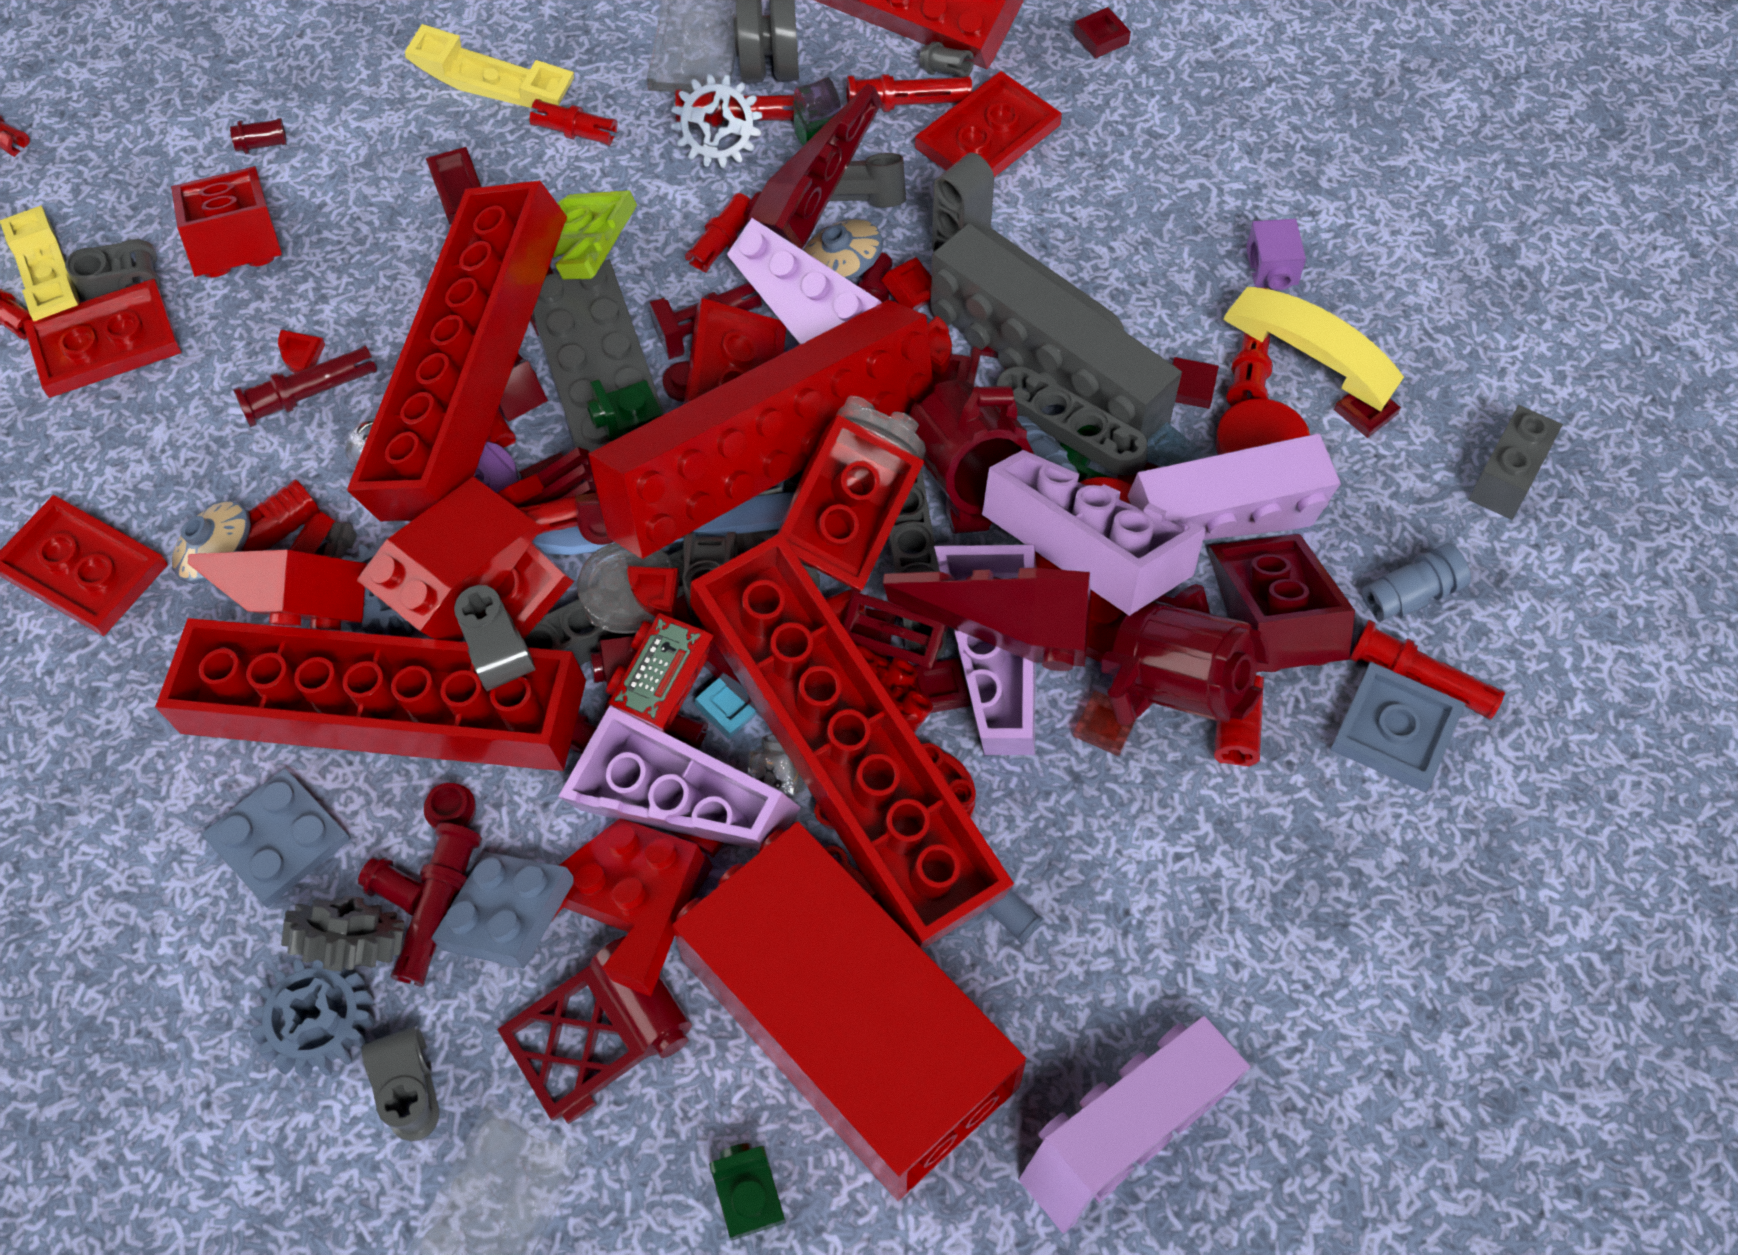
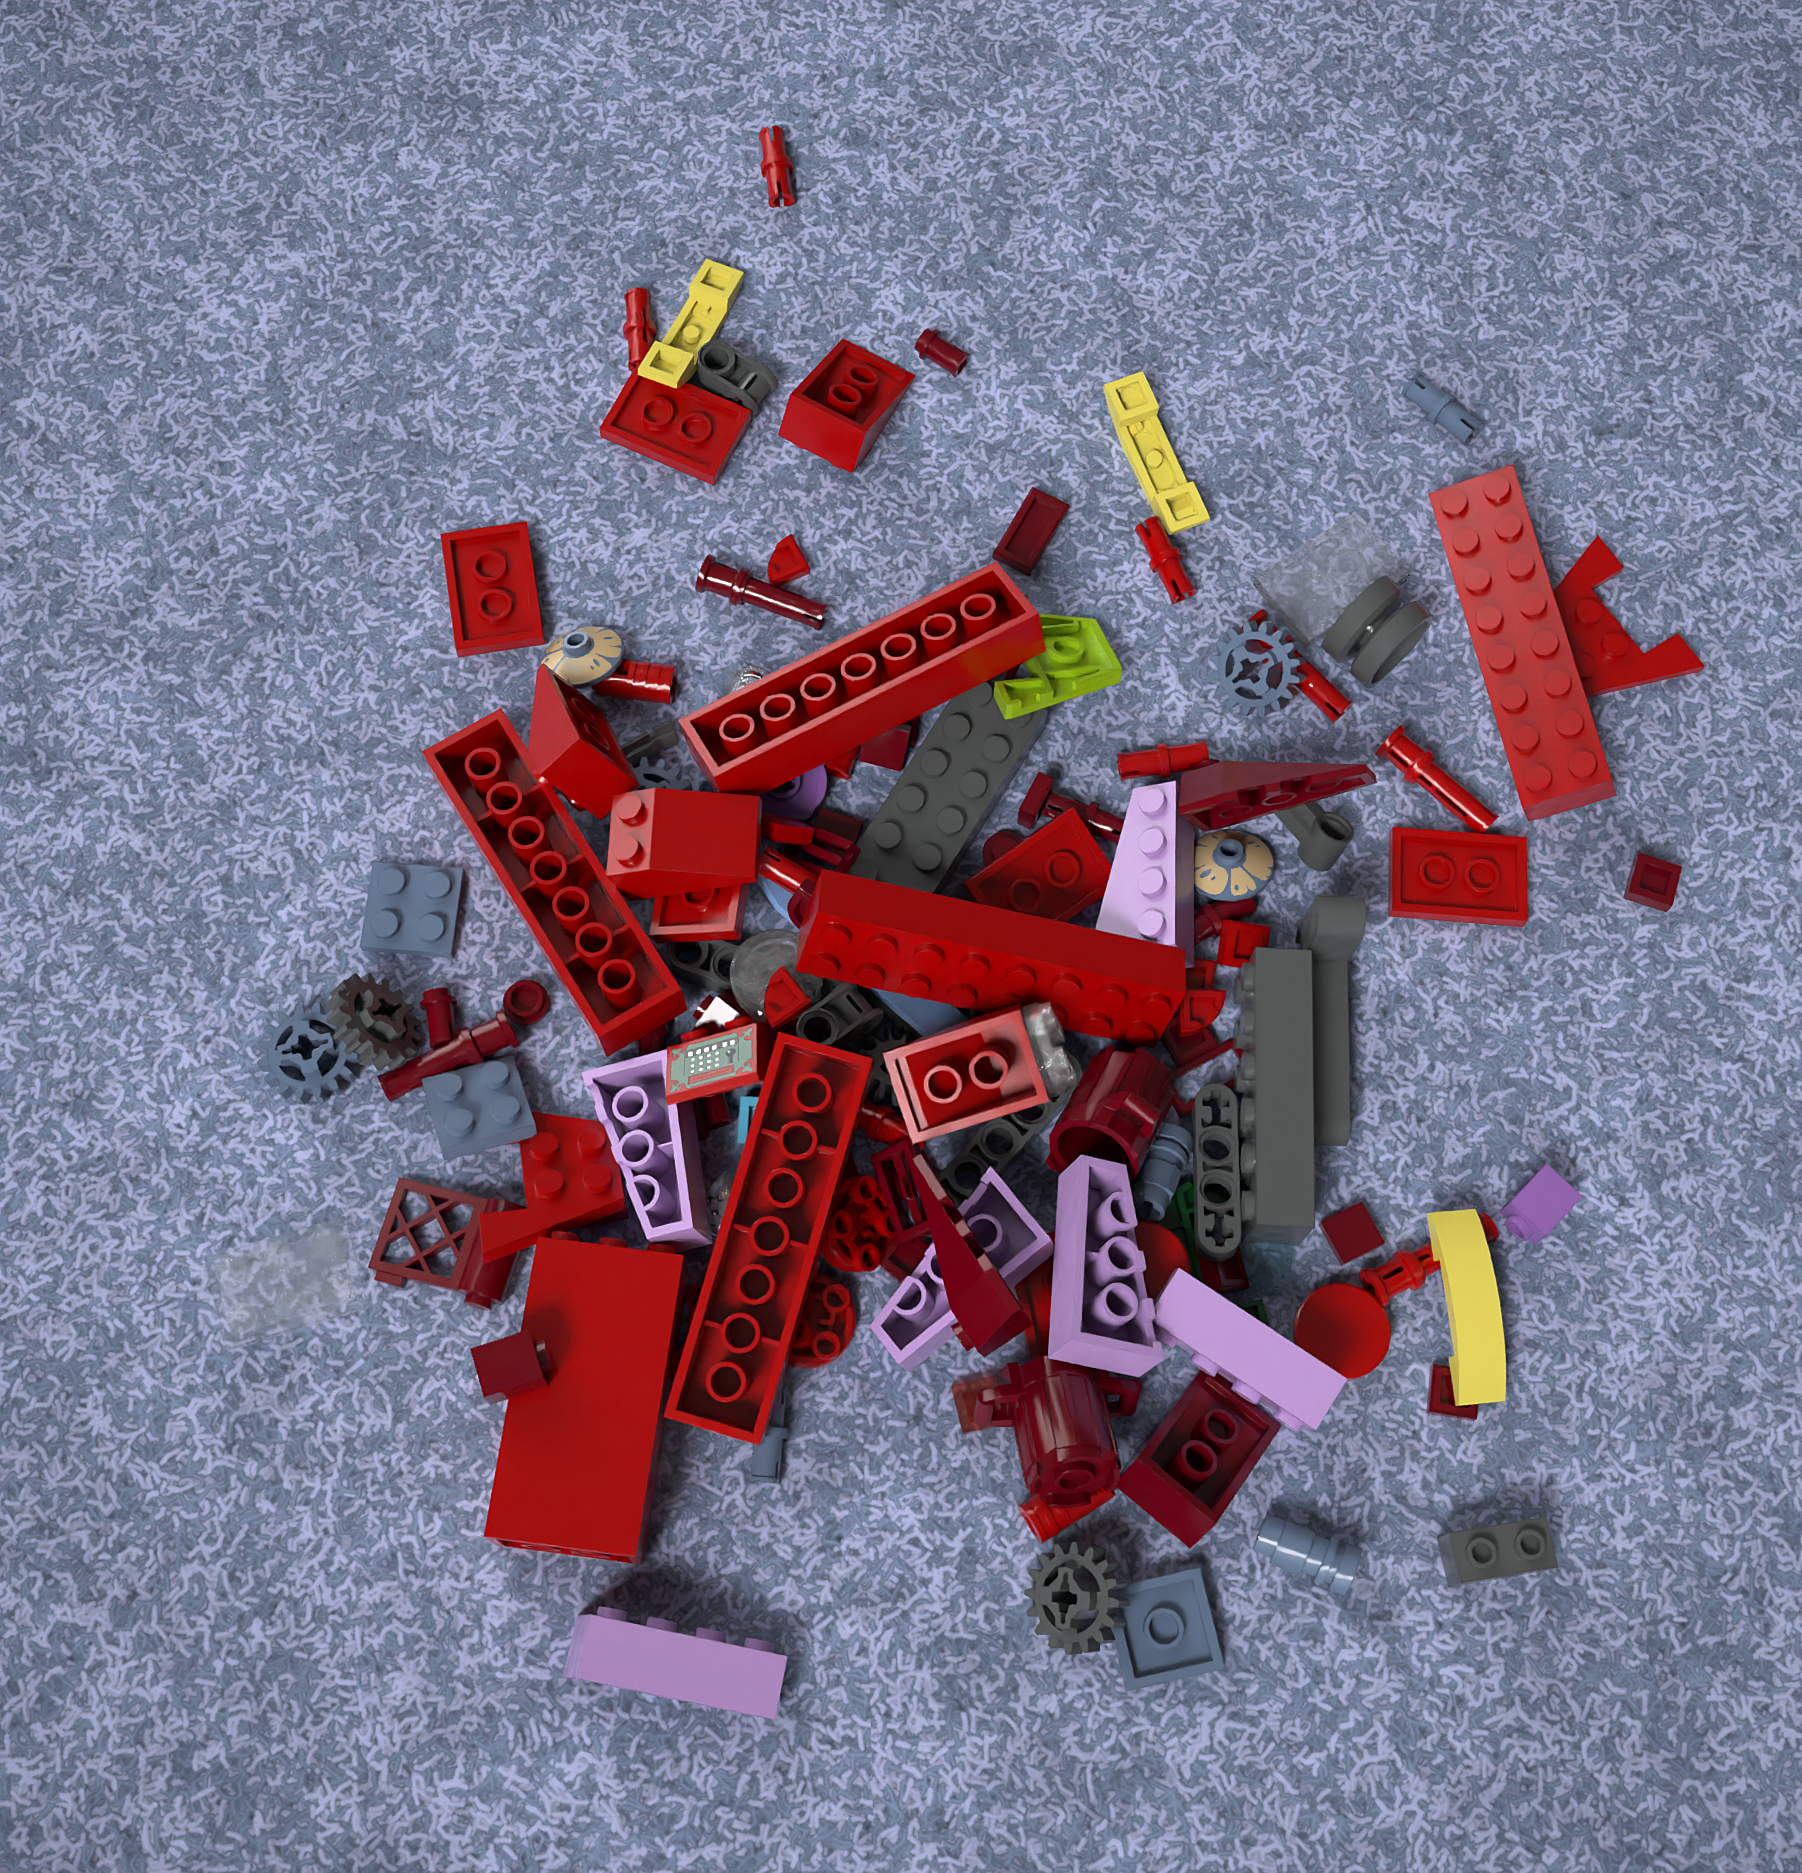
camera: 45 degrees right, 10 degrees up
(312, 534) = (639, 720): red tile -> none
(401, 1076) = (315, 1145): dark grey piece -> none
(492, 637) = (635, 937): dark grey piece -> none
(622, 409) = (914, 845): dark green bracket -> none
(746, 1190) = (421, 1438): dark green bracket -> none
(771, 1026) = (511, 1366): none -> dark red brick
(814, 107) = (1334, 738): clear purple leg -> none
(945, 60) = (1495, 775): dark grey pin -> none
(1346, 779) = (1077, 1597): none -> dark grey gear
(1407, 661) = (1227, 1592): red pin -> none

